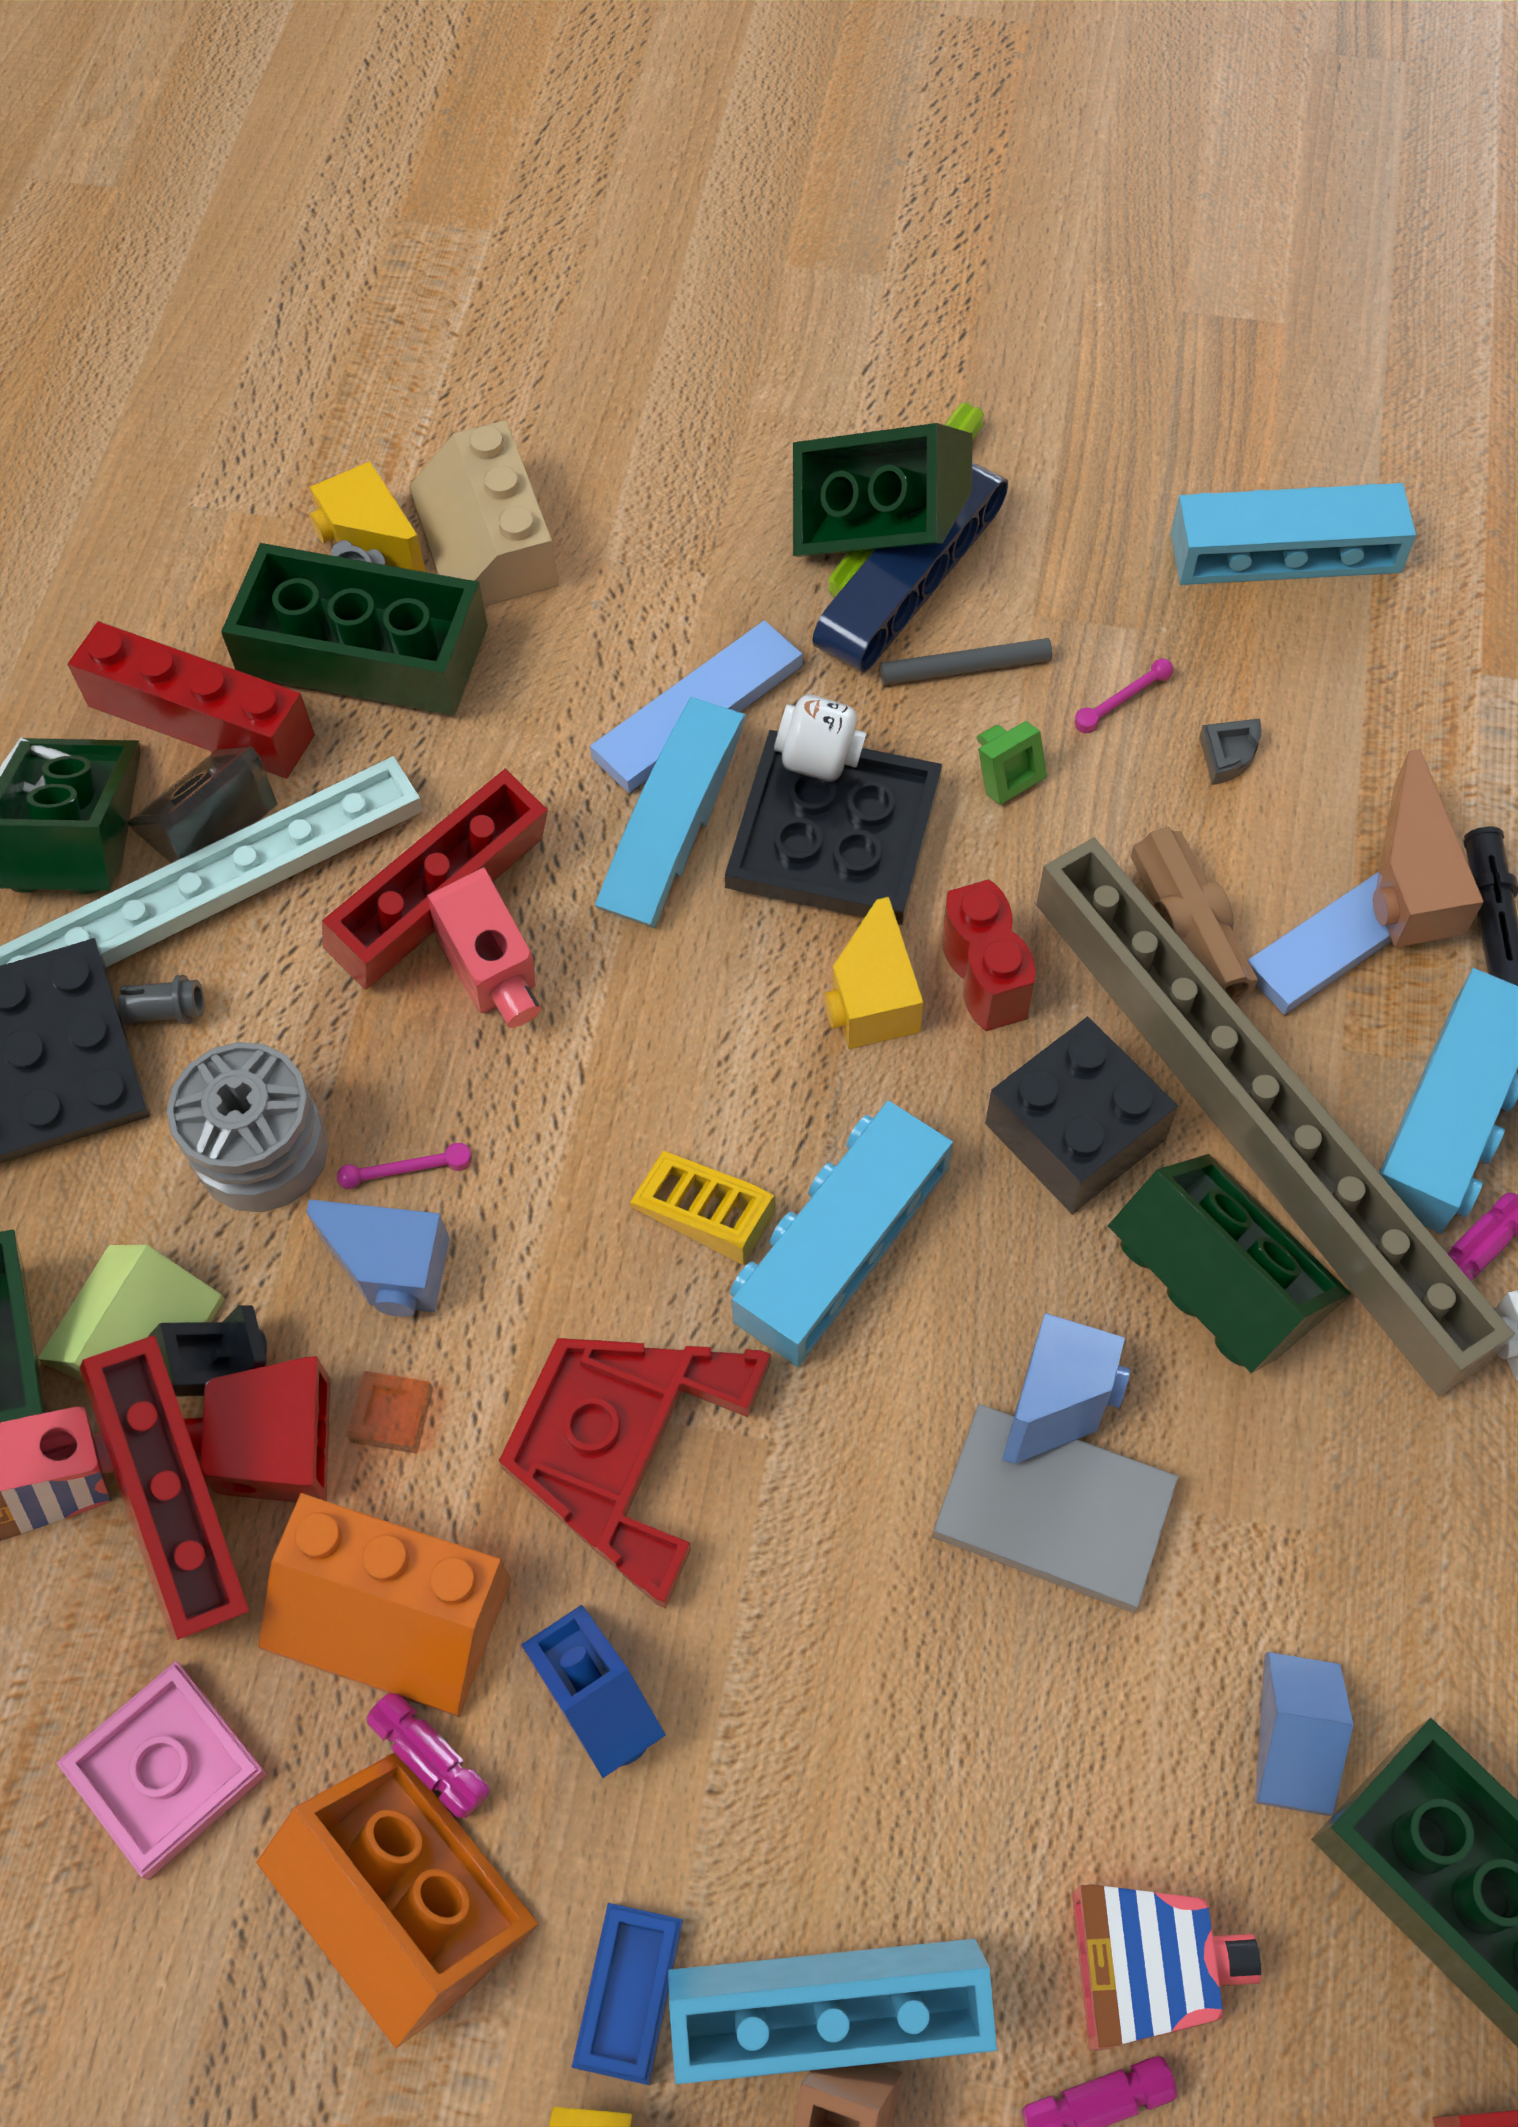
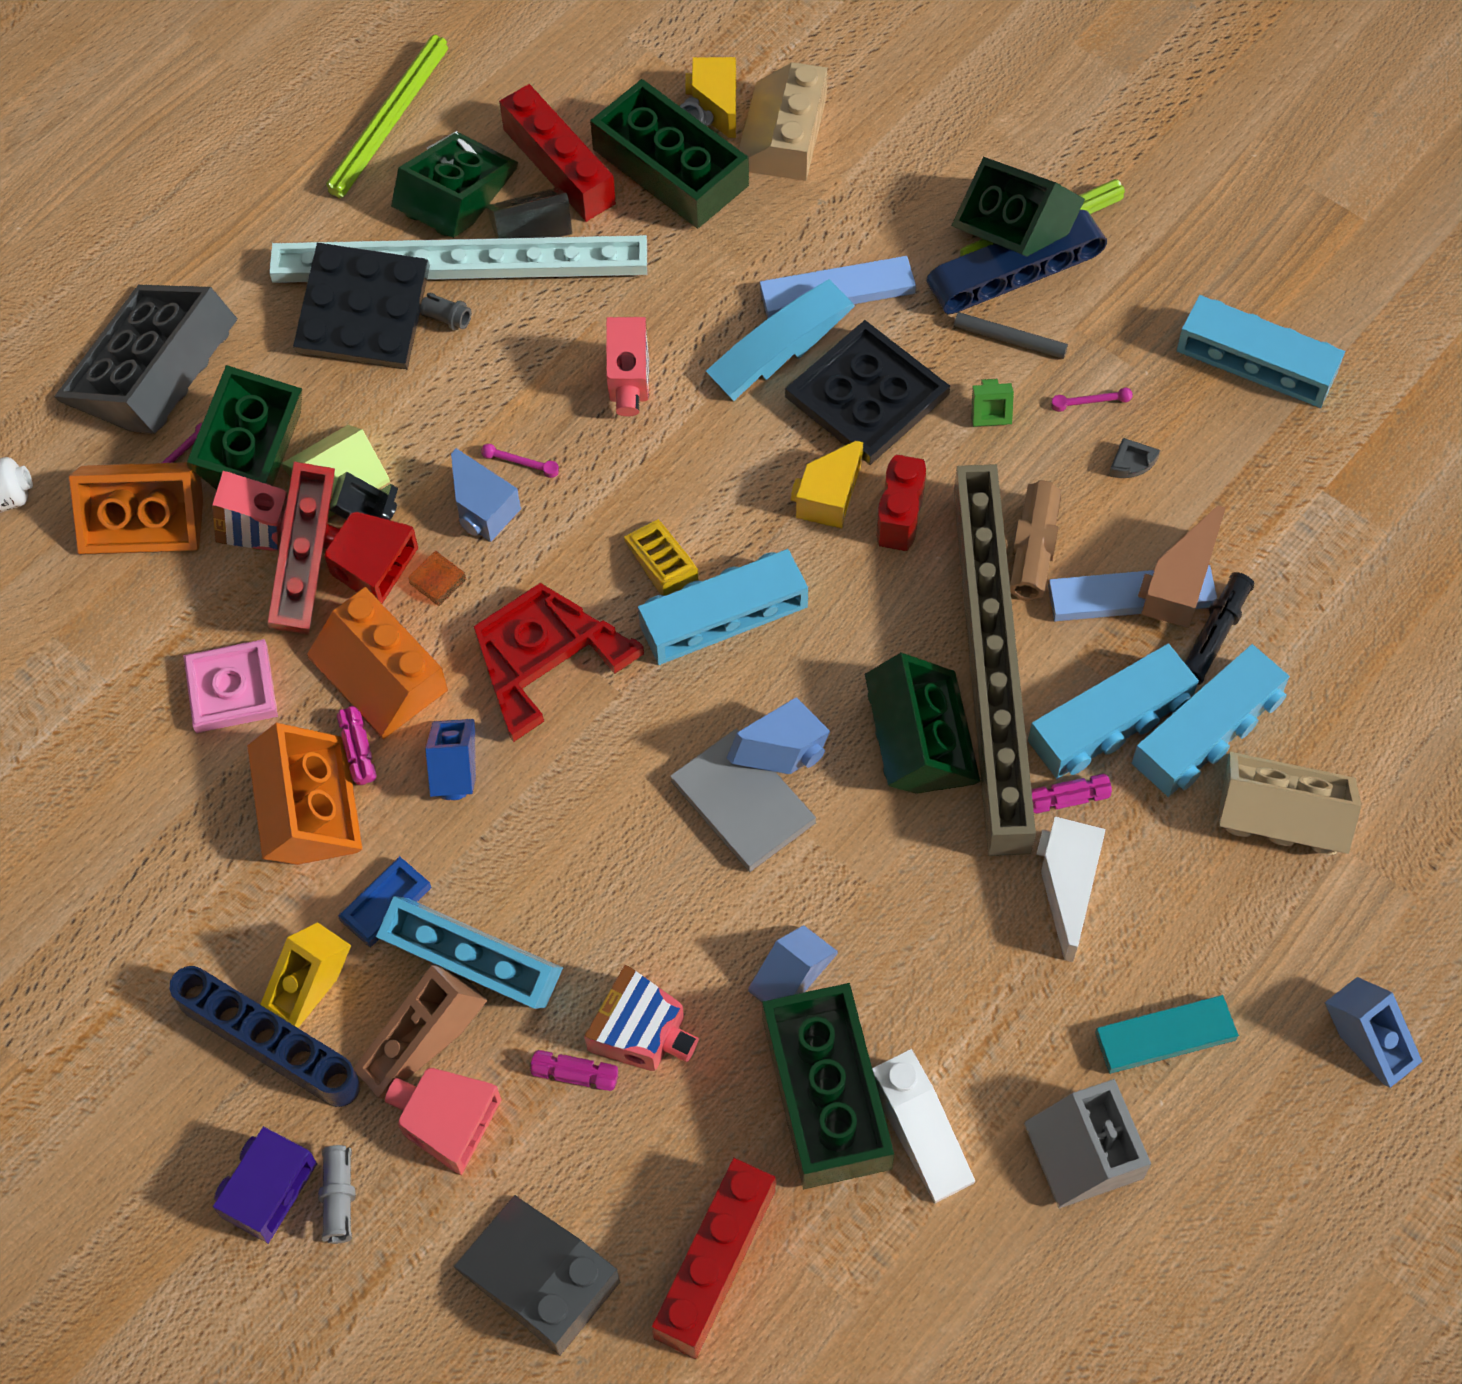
camera: 30 degrees right, 0 degrees up
(248, 1126) = (448, 397): light grey wheel -> none
(393, 909) = (664, 301): red brick -> none
(819, 738) = (882, 335): white head -> none
(1080, 1114) = (892, 611): black brick -> none

